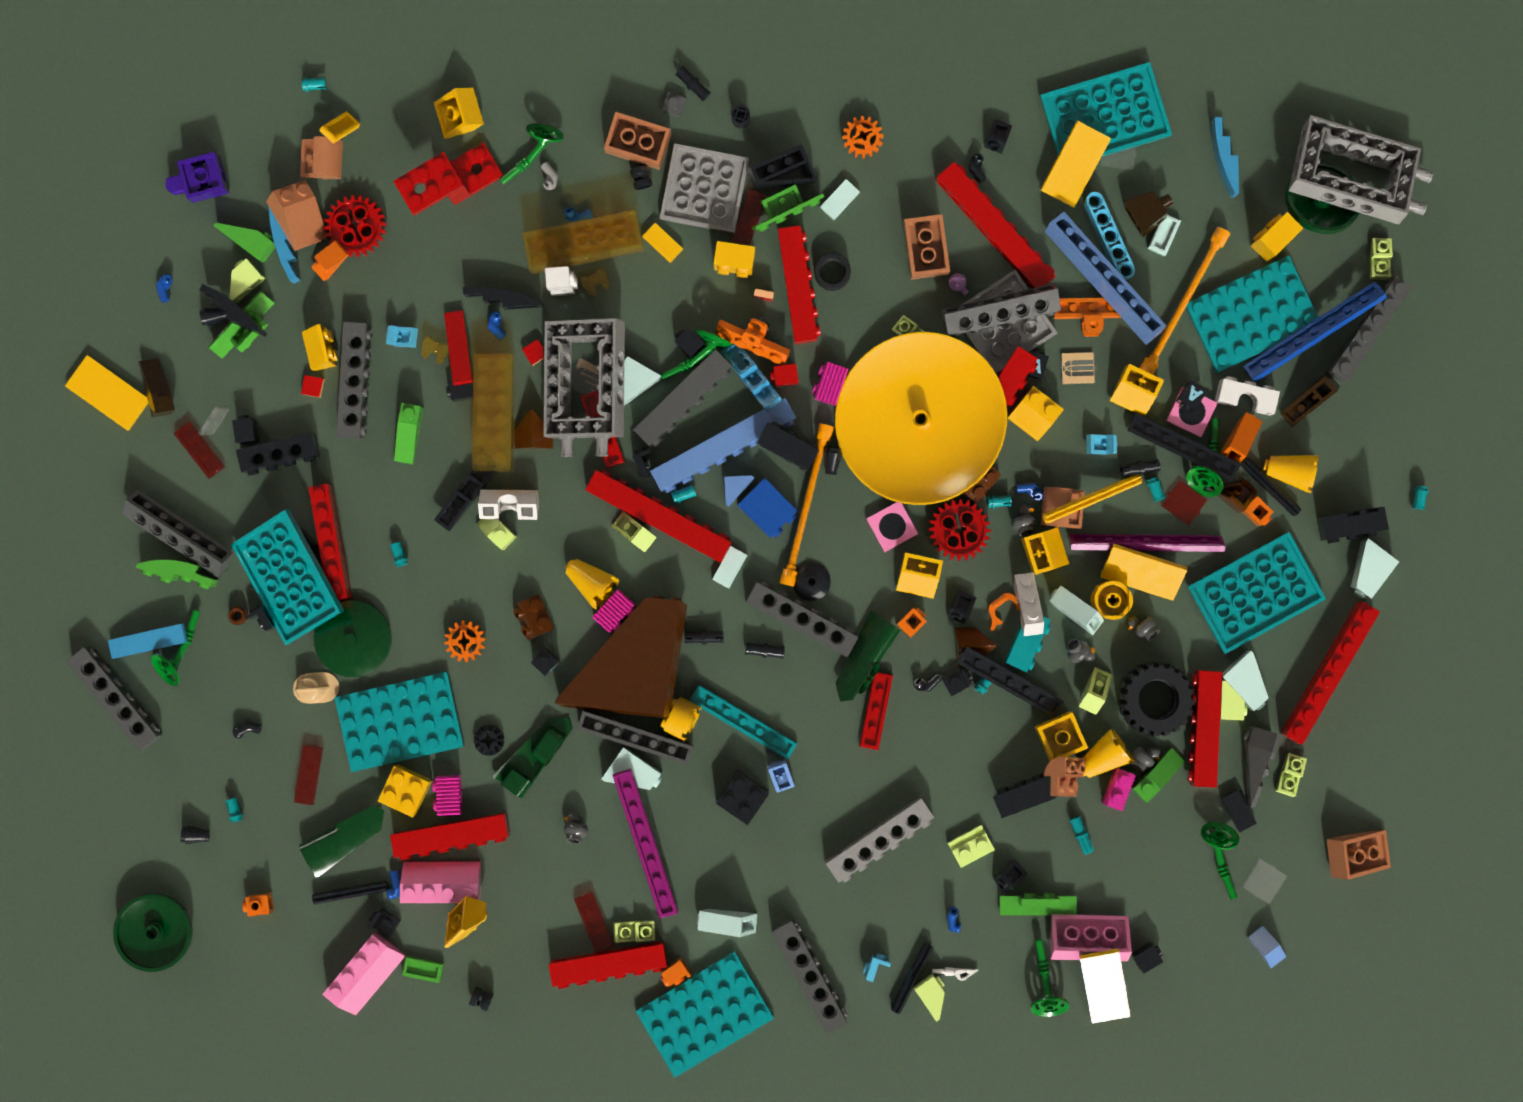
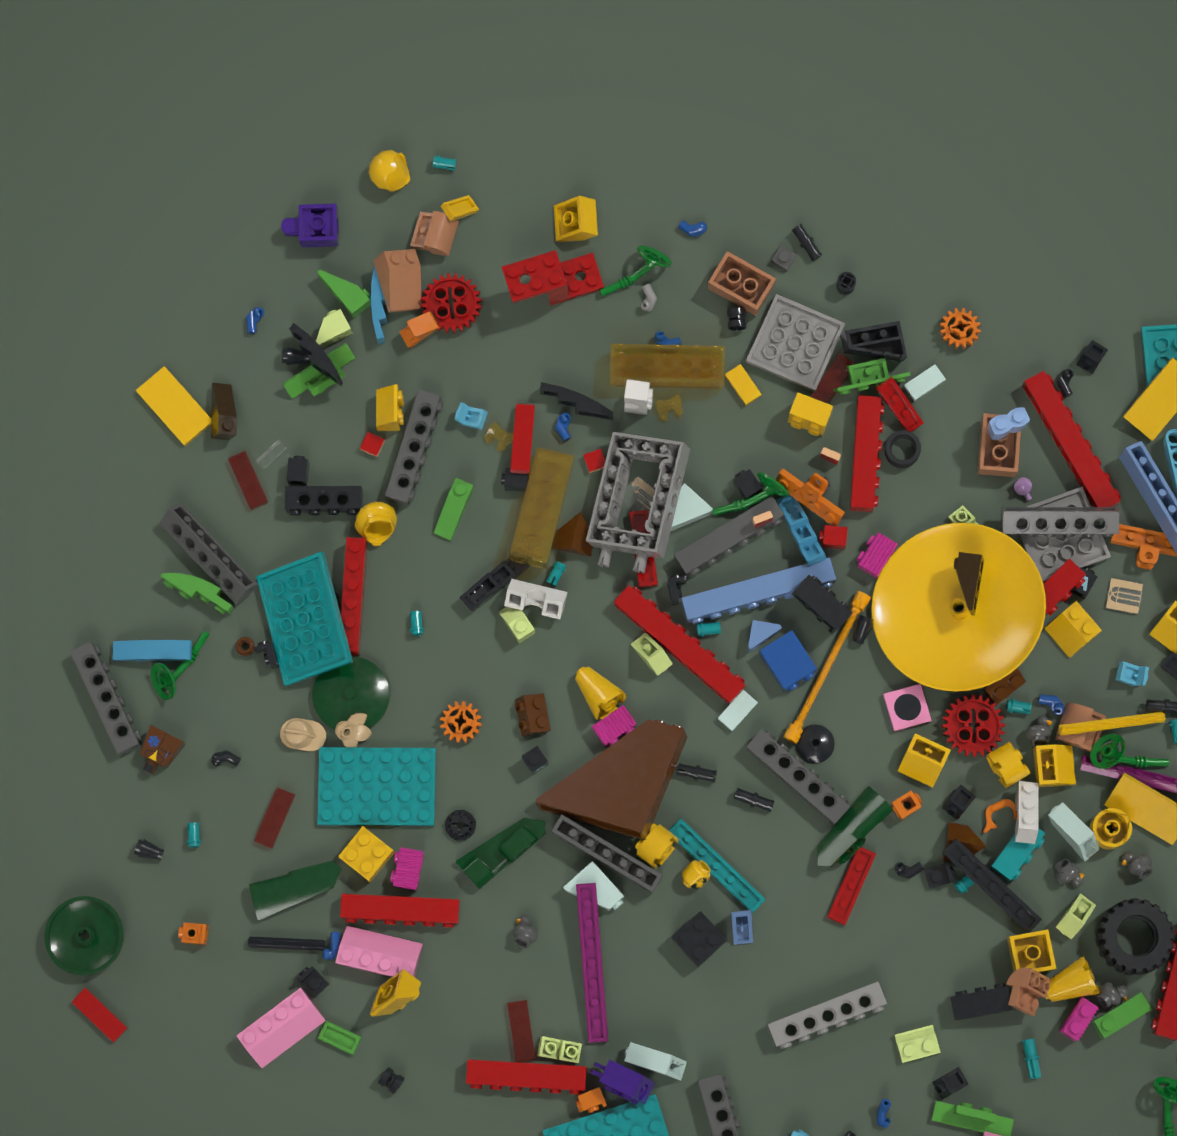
camera: 20 degrees right, 10 degrees down
(180, 735) = (160, 749): none -> reddish brown torso
(188, 1001) = (99, 1015): none -> red tile
(260, 104) = (389, 170): none -> yellow helmet
(334, 464) = (376, 522): none -> yellow helmet
(364, 674) = (355, 731): none -> tan plate
(523, 472) = (556, 573): none -> teal pin
(578, 96) = (693, 230): none -> blue arm
(701, 950) = (624, 1082): none -> dark purple brick
(711, 375) = (762, 519): none -> light nougat tile
(725, 736) = (696, 874): none -> yellow head
(820, 228) = (899, 404): none -> red tile
(924, 383) = (969, 572): none -> dark brown slope
(936, 222) = (1013, 422): none -> light blue brick
(1000, 561) = (1007, 764): none -> yellow brick
(1099, 528) = (1111, 754): none -> green dish

